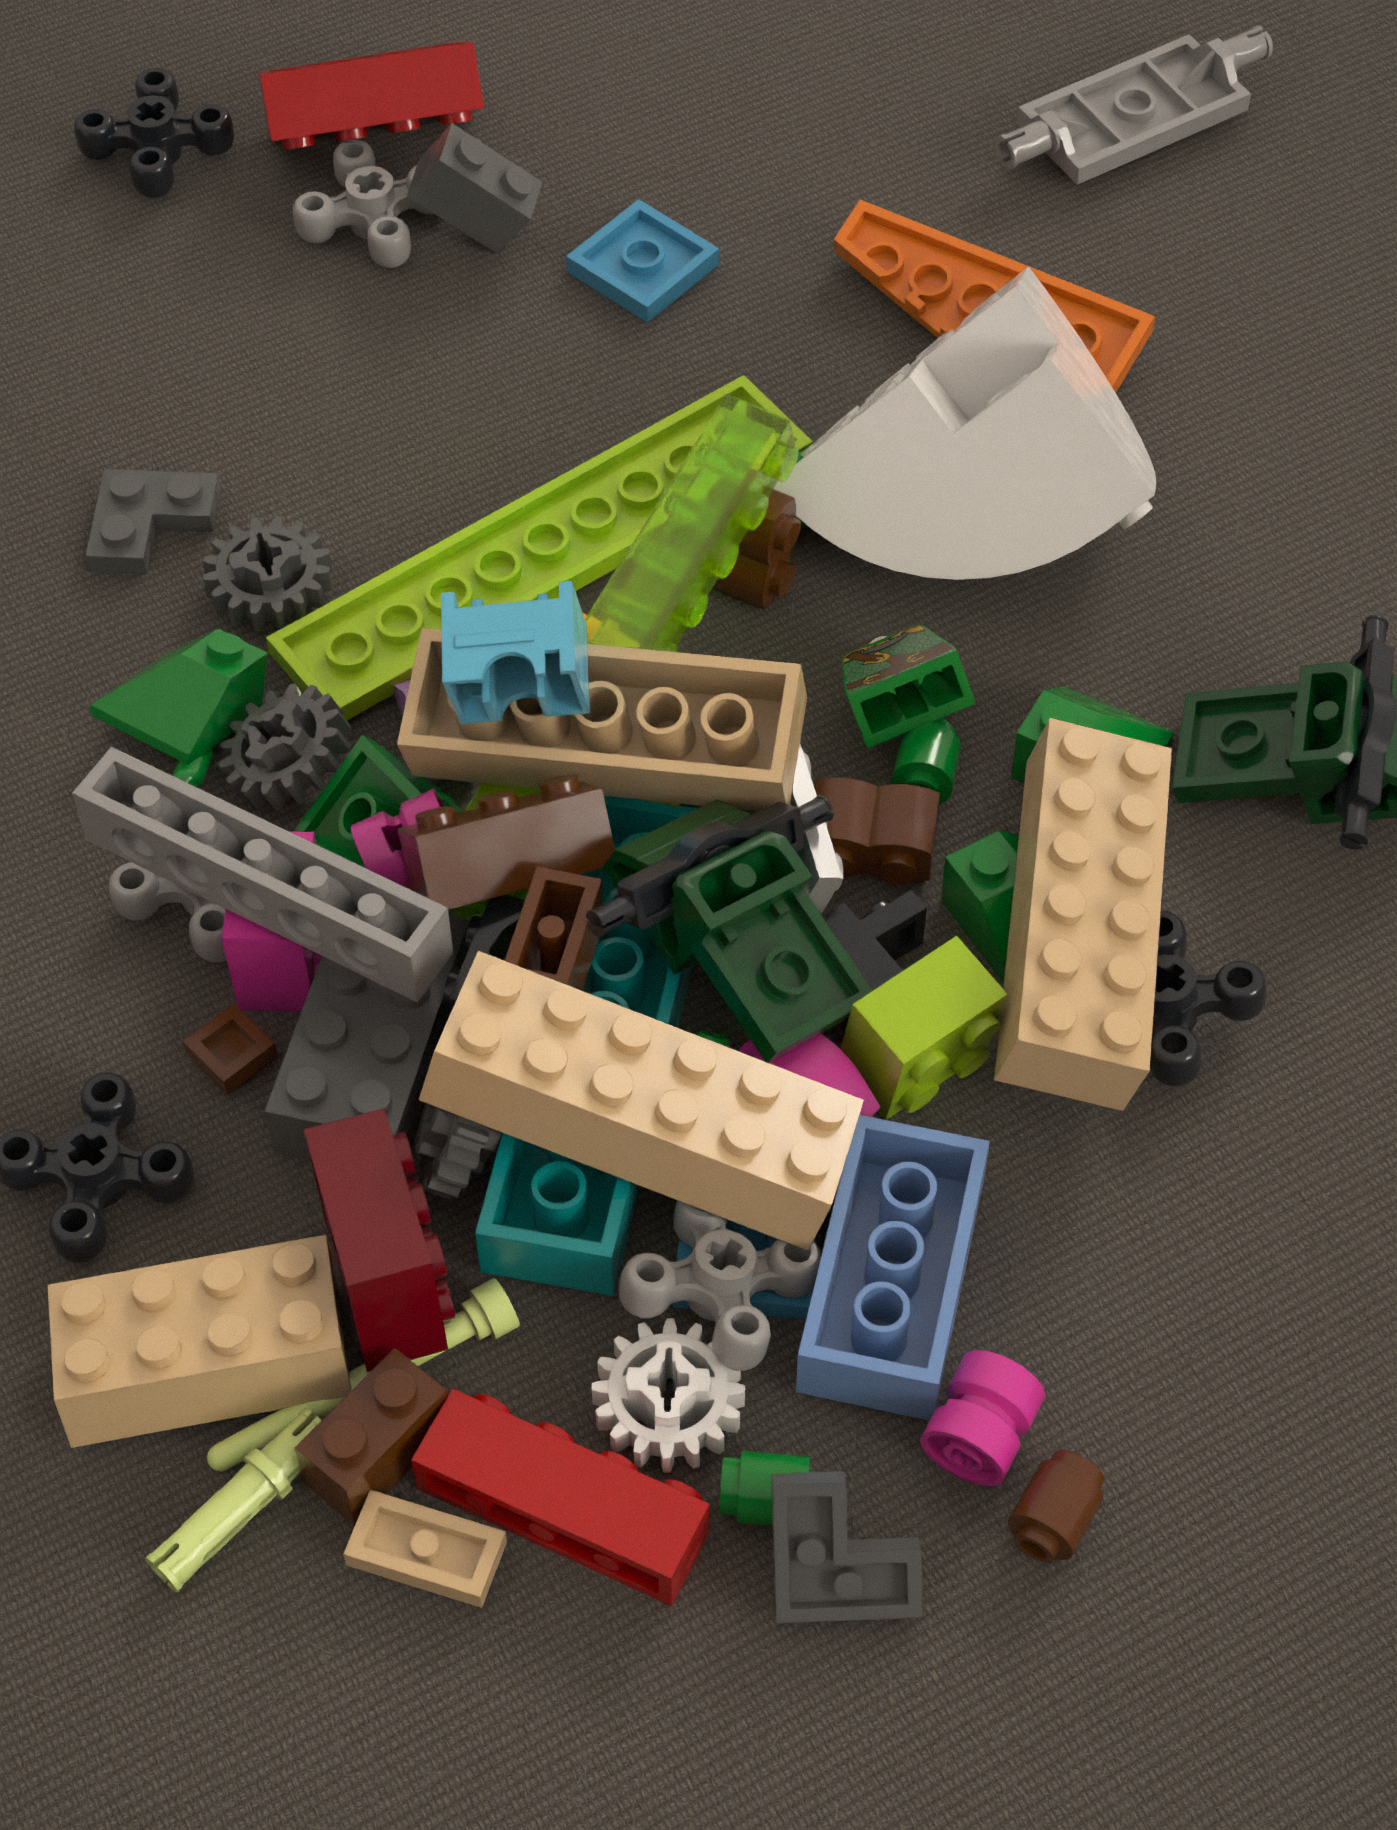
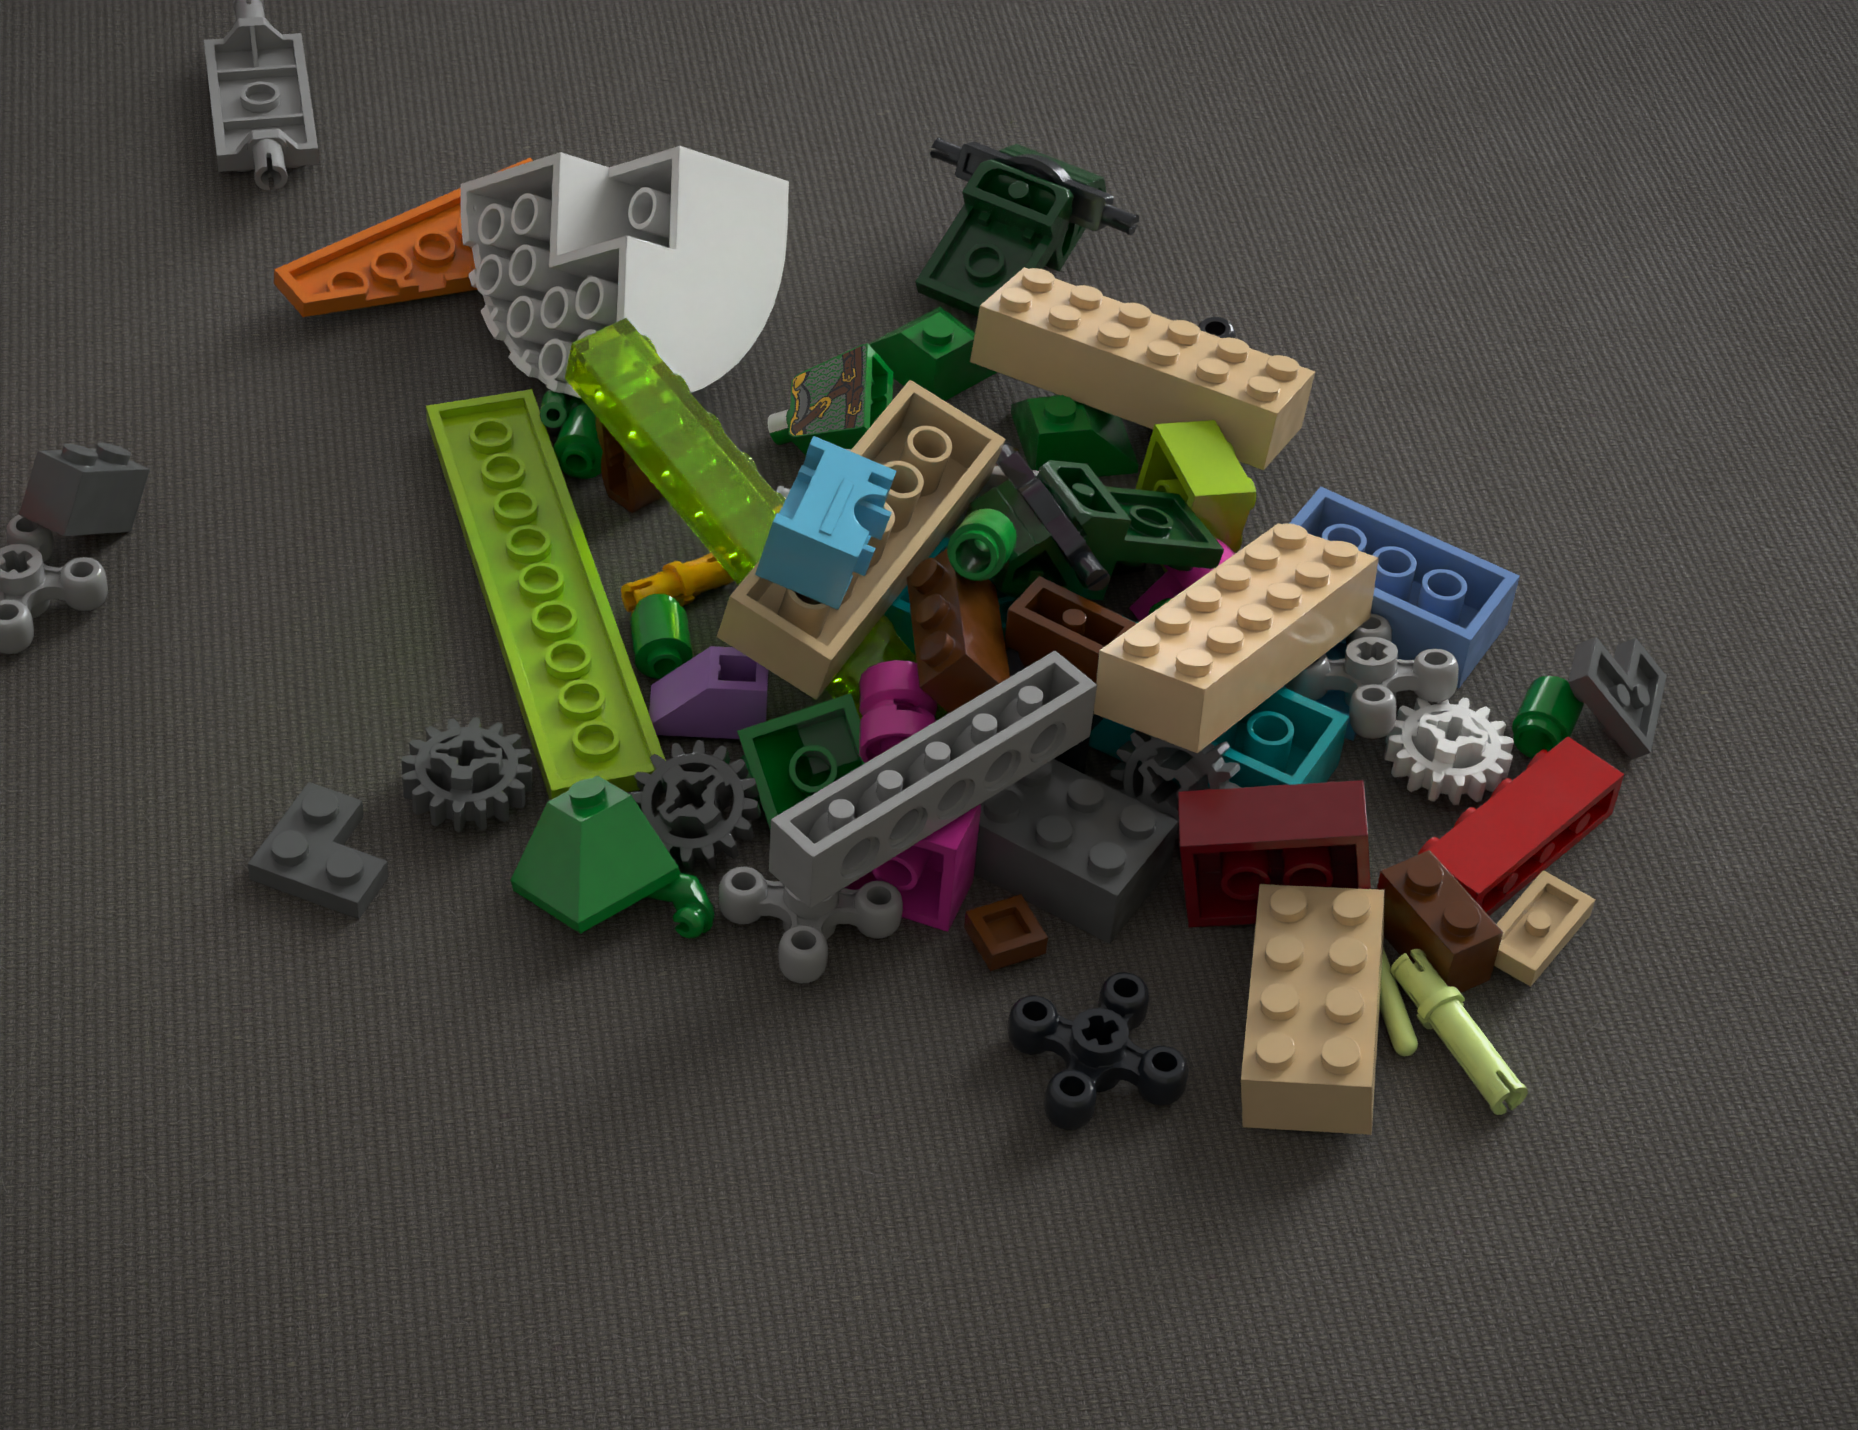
camera: 75 degrees left, 10 degrees down
(594, 806) = (981, 544): none -> green brick
(642, 260) = (220, 436): dark azure tile -> none
(984, 1416) = (1544, 587): dark pink wheel -> none
(1057, 1507) = (1605, 575): reddish brown brick -> none

